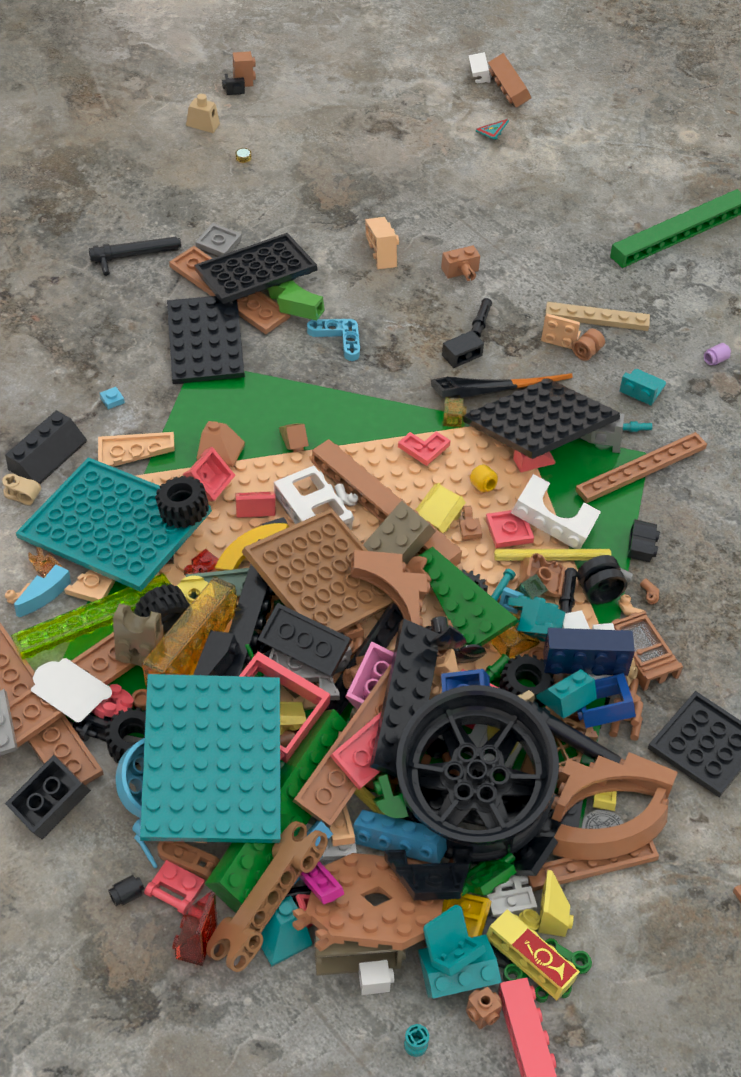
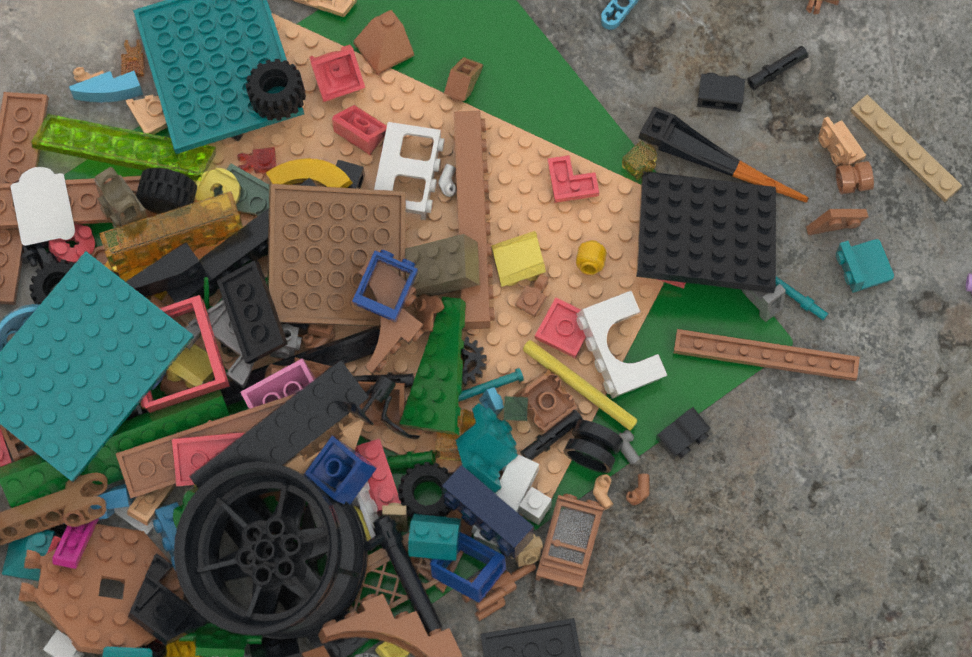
camera: 45 degrees right, 20 degrees up
(388, 578) = (373, 306): none -> blue window
(603, 371) = (837, 219): none -> nougat wing

